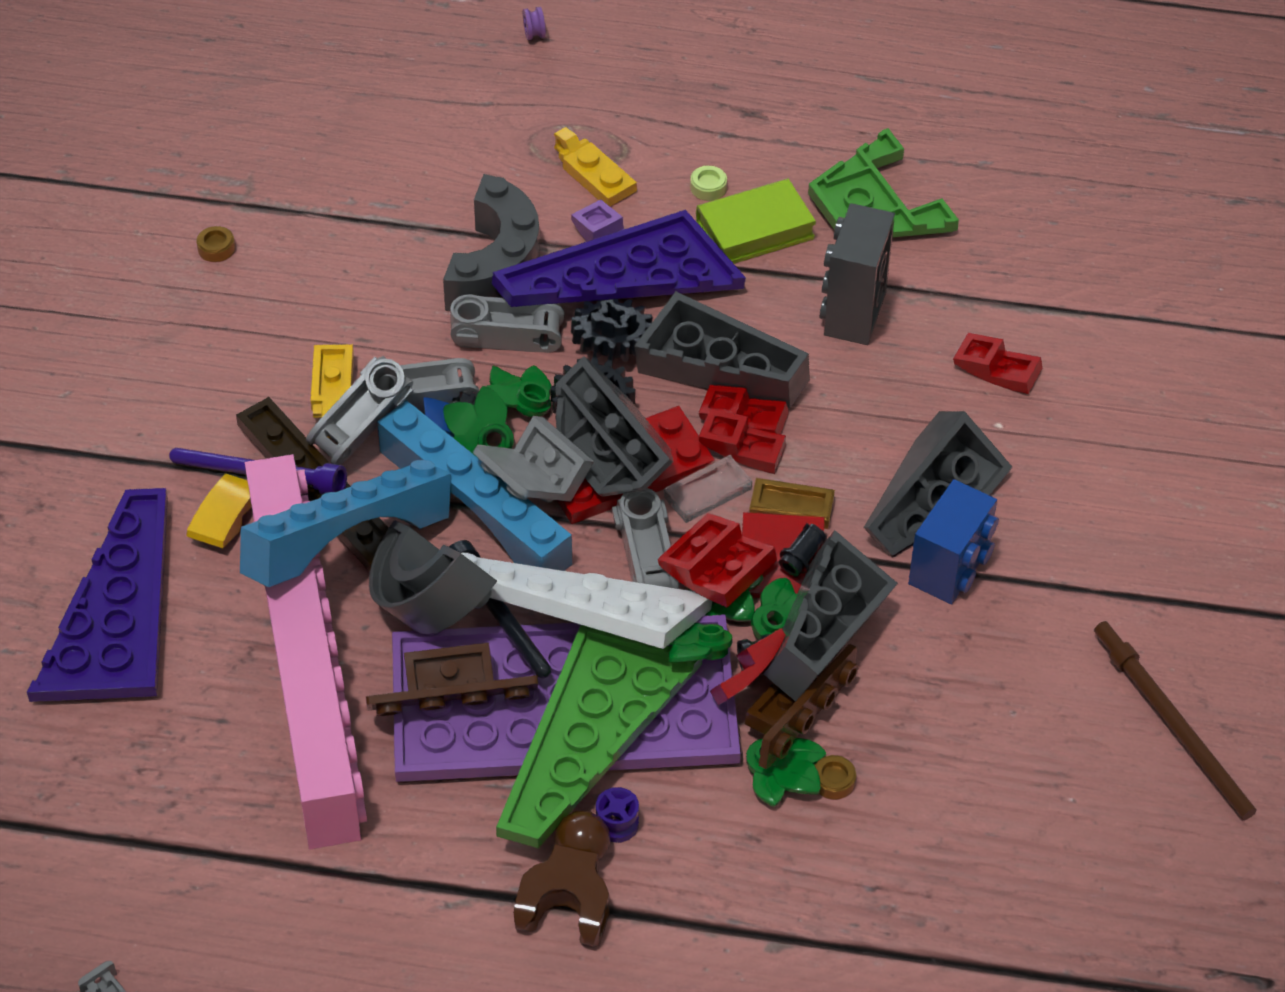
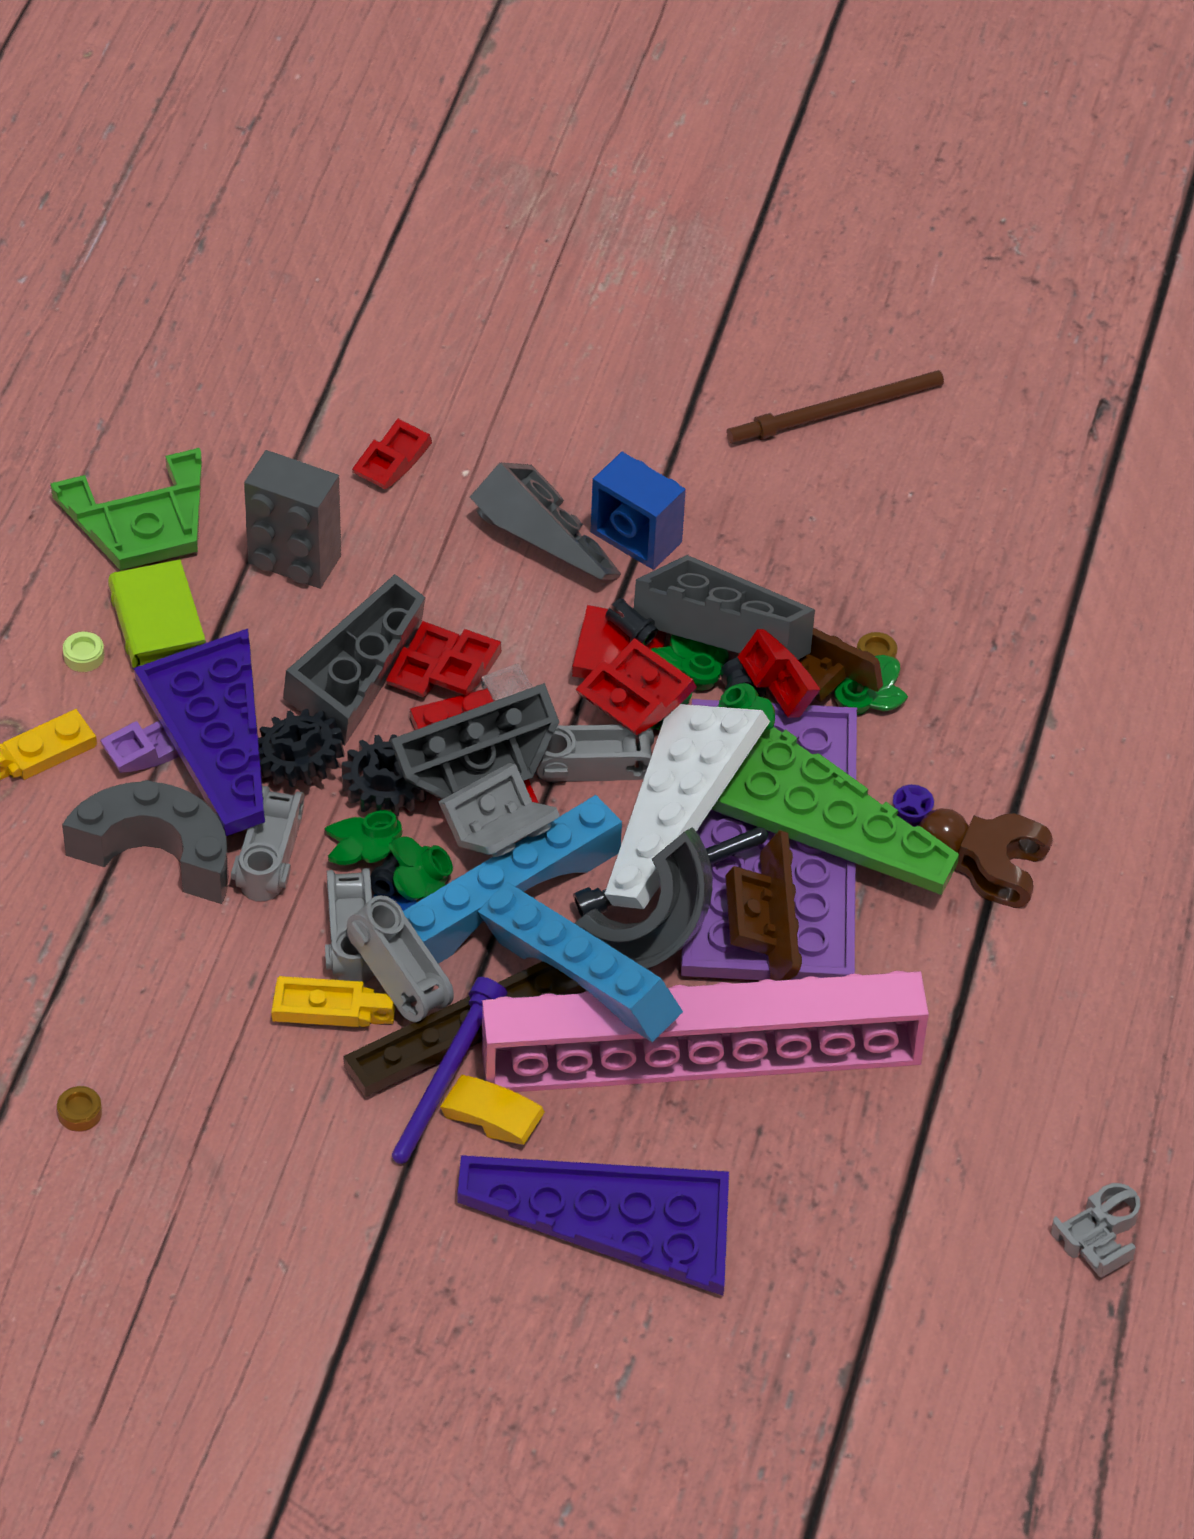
camera: 85 degrees left, 0 degrees up
(791, 499) = (546, 639): pearl gold tile -> none

